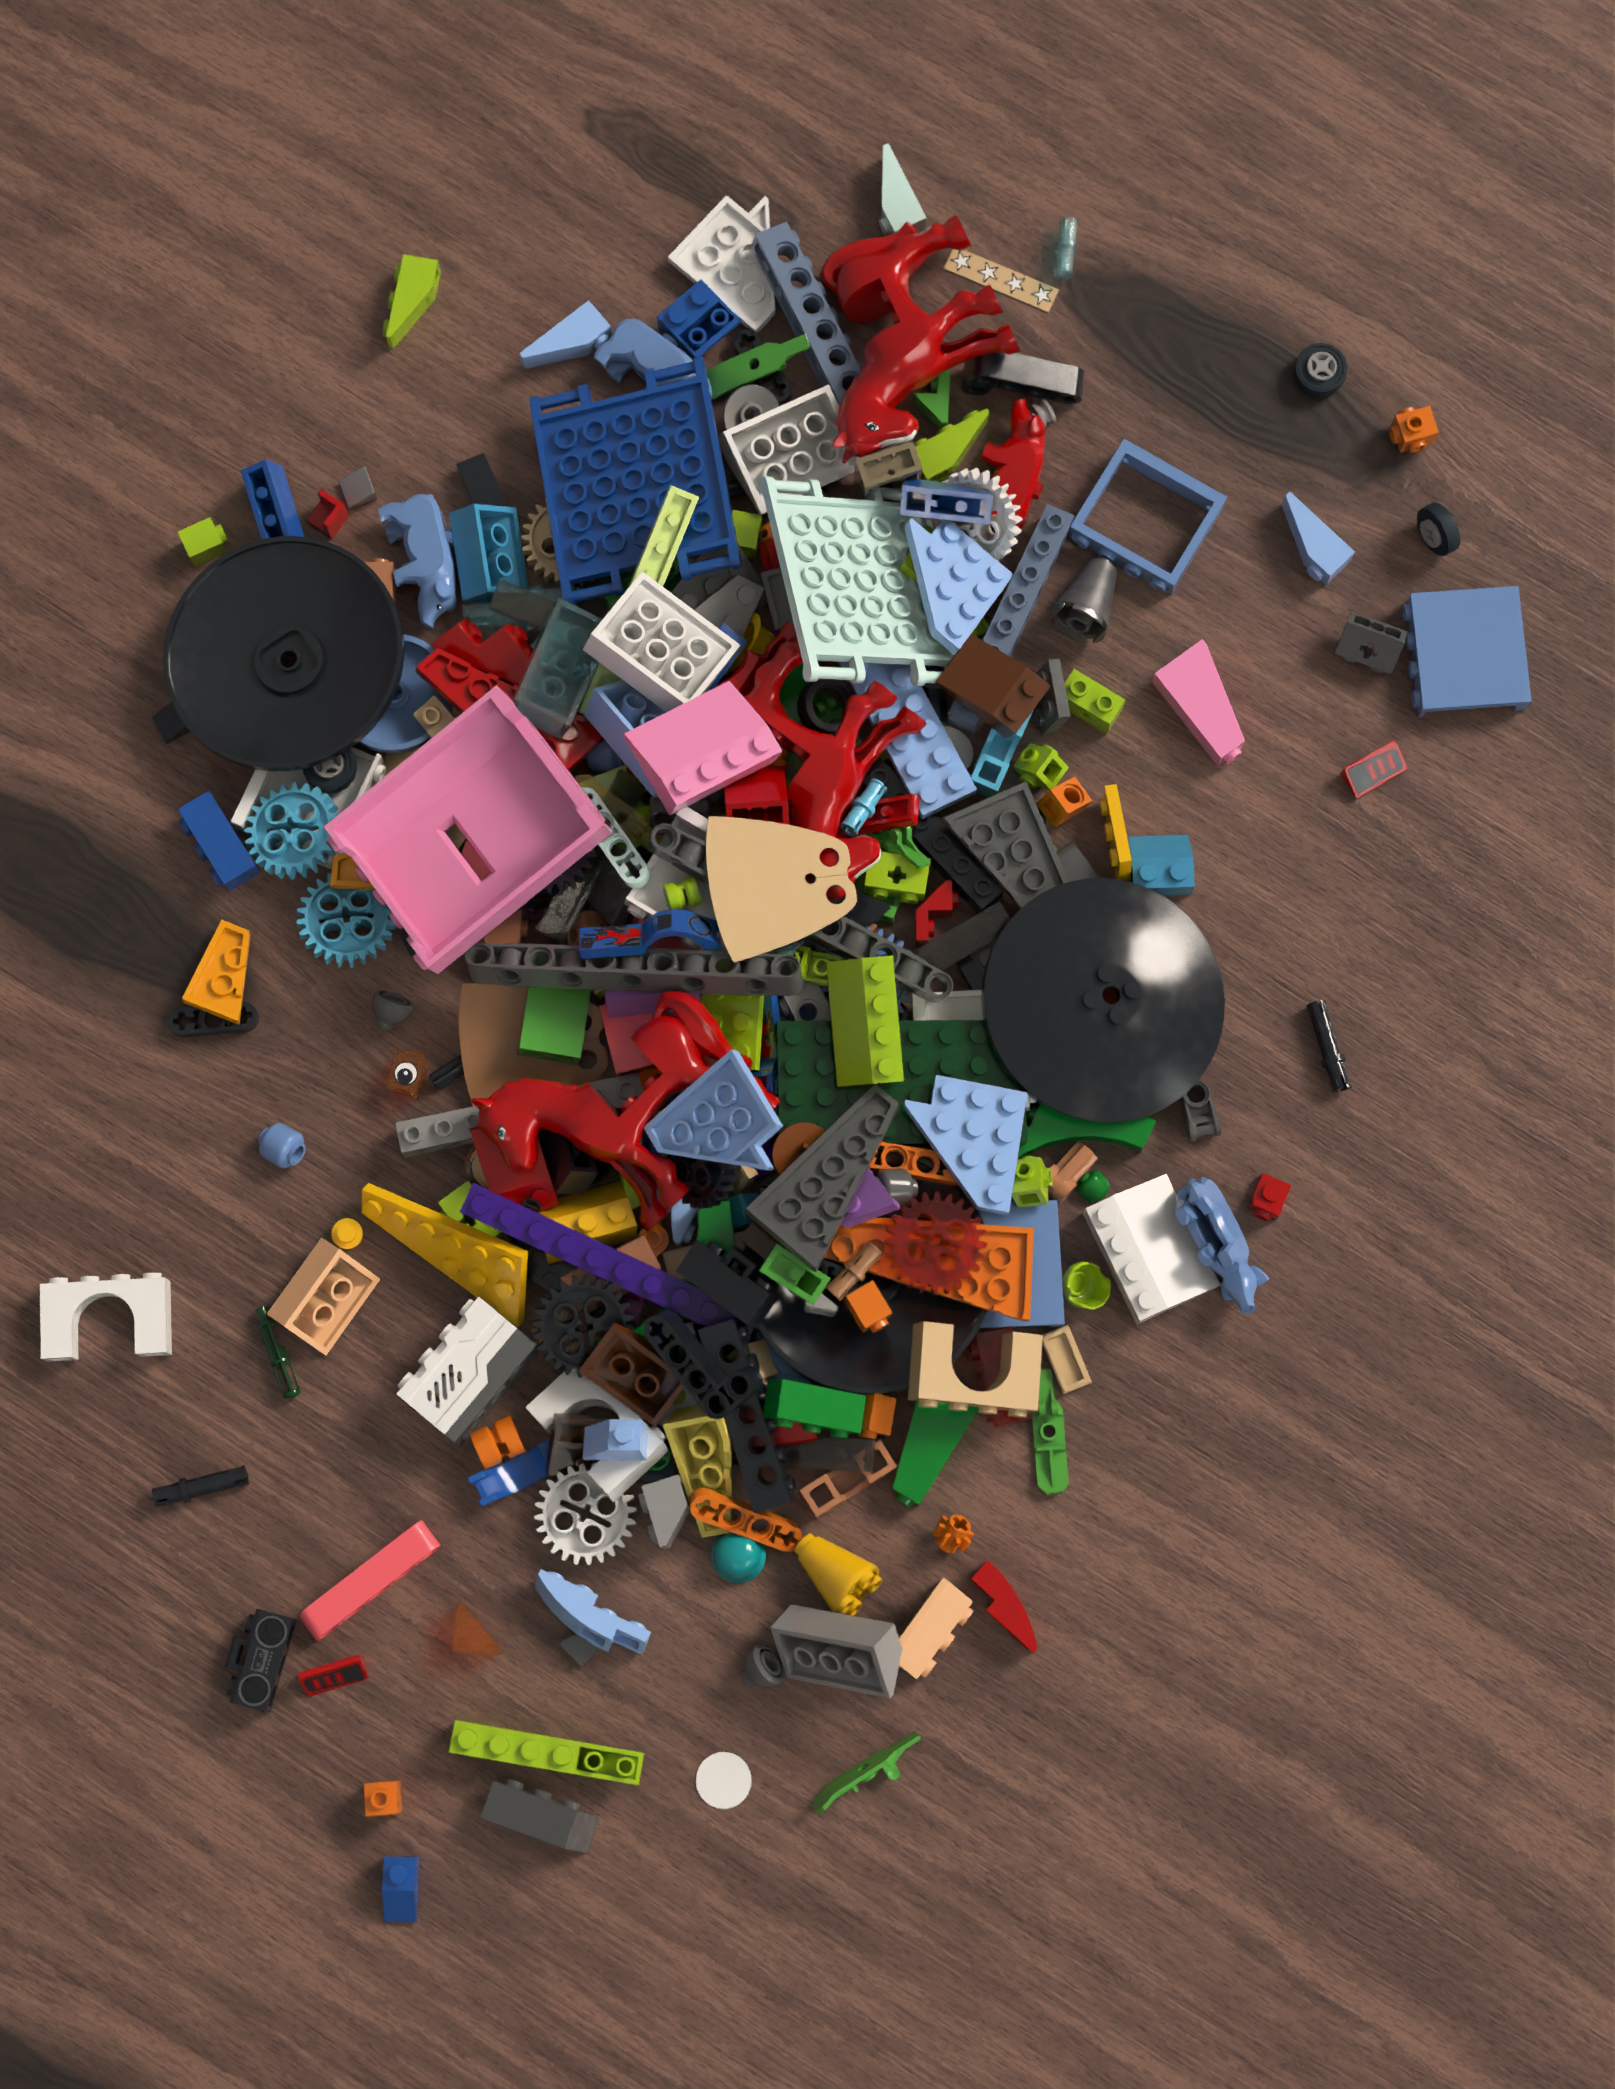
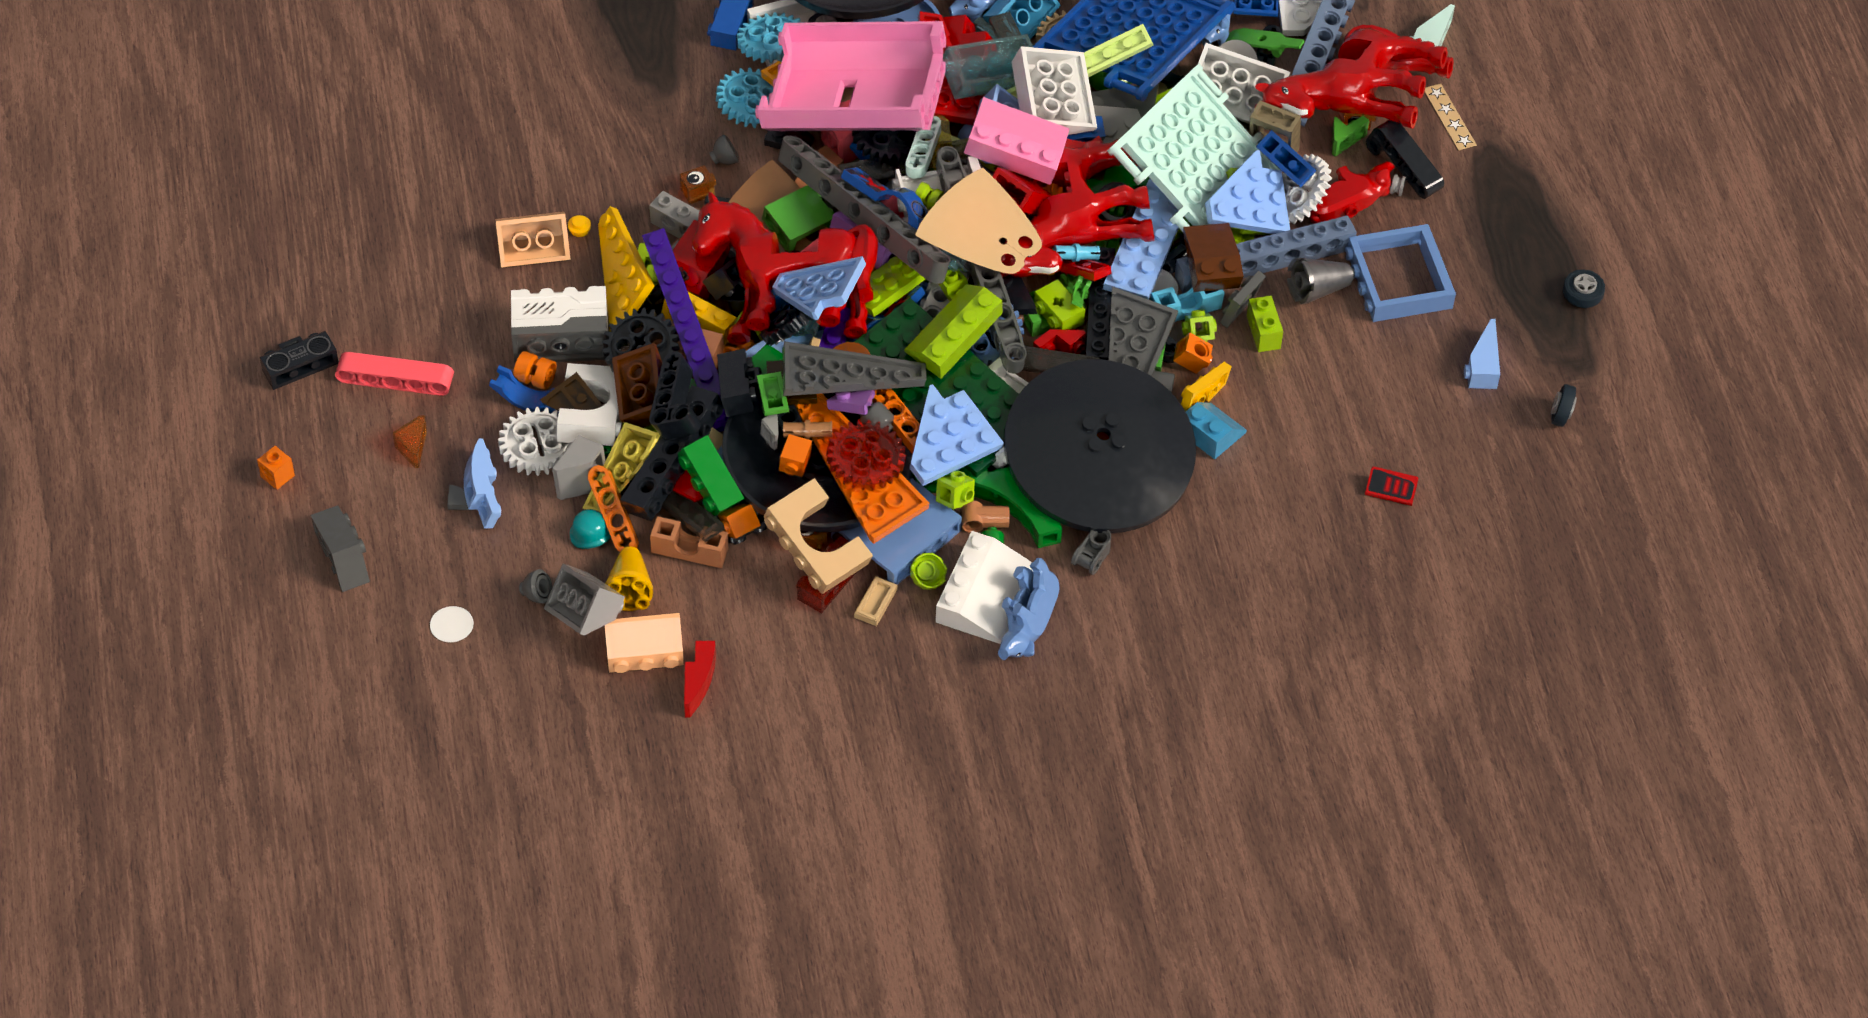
camera: 45 degrees right, 25 degrees down
(65, 1301) = (408, 135): white arch -> none
(191, 1028) = (634, 94): black beam -> none
(192, 1488) = (360, 260): black pin -> none
(221, 974) = (660, 68): light orange wing -> none
(277, 1353) = (478, 244): dark green piece -> none
(281, 1145) = (596, 160): medium blue head -> none
(333, 1675) = (324, 397): slope -> none
(400, 1888) = (233, 513): blue slope -> none
(546, 1752) = (377, 517): lime slope -> none
(616, 1440) = (594, 404): light blue slope -> none
(864, 1772) = (543, 689): bright green piece -> none
(927, 1448) = (752, 569): green slope -> none
(945, 451) = (1333, 155): lime slope -> none
(953, 1533) = (713, 618): orange gear -> none
(1049, 1451) = (815, 634): bright green piece -> none
(1066, 248) = (1502, 127): clear light blue pin -> none
(1200, 701) = (1329, 372): bright pink slope -> none
(1268, 1198) = (1082, 626): red bracket -> none
(1329, 1047) = (1200, 593): black pin -> none
(1363, 630) = (1459, 424): dark grey brick -> none
(1413, 429) = (1605, 352): orange brick -> none
(1467, 649) = (1515, 474): medium blue panel -> none

